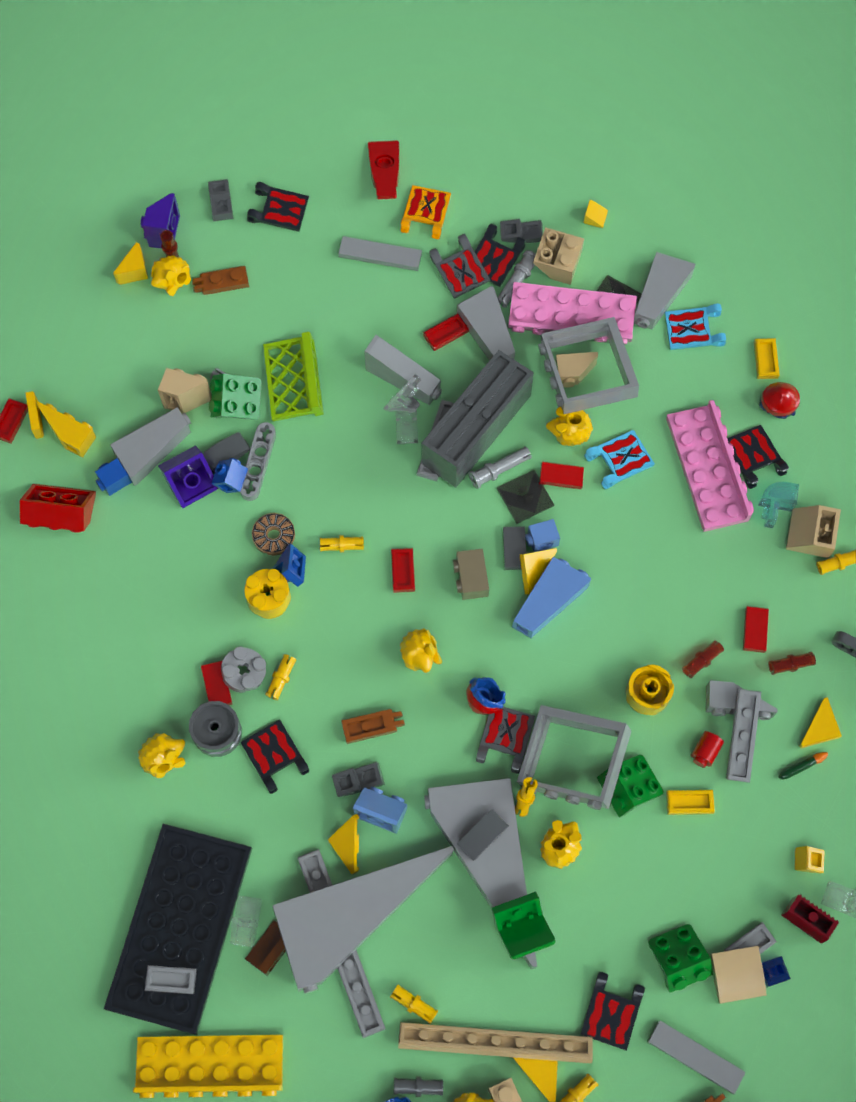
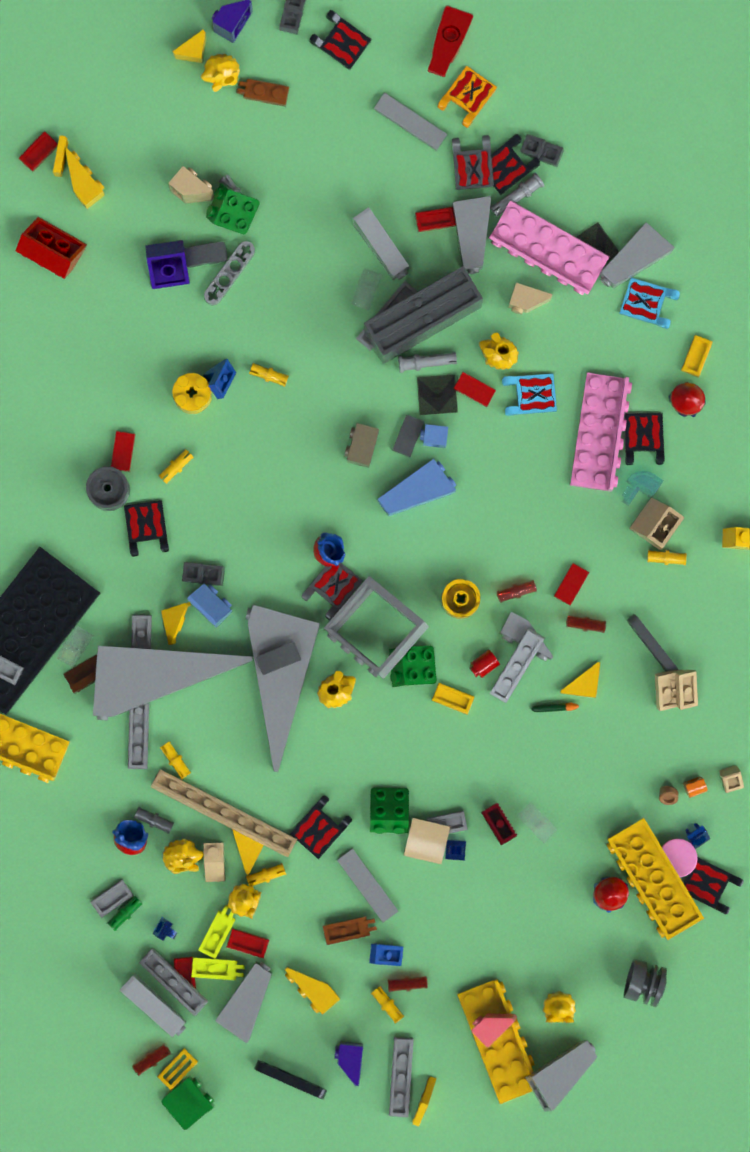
camera: 20 degrees right, 15 degrees up
(112, 477) = (104, 239): blue brick -> none
(150, 444) = (146, 222): light grey slope -> none
(161, 754) = (58, 492): yellow animal -> none
(169, 245) = (229, 45): clear red pin -> none
(229, 475) = (201, 278): blue brick -> none
(243, 657) = (148, 459): light grey plate -> none
(273, 522) = (217, 331): tile -> none
(310, 372) = (304, 210): lime fence -> none
(371, 725) = (230, 535): dark orange hinge -> none
(403, 400) = (371, 270): clear slope -> none
(403, 570) = (309, 417): red tile -> none
(419, 650) = (293, 492): yellow animal -> none
(522, 926) = (277, 739): green bracket -> none
(525, 796) = (325, 642): yellow pin -> none
(533, 566) = (416, 458): yellow tile -> none
(558, 255) = (561, 188): tan slope -> none
(584, 332) = (537, 273): light grey window -> none
(595, 214) = (613, 161): yellow slope -> none
(809, 859) = (524, 780): yellow slope -> none

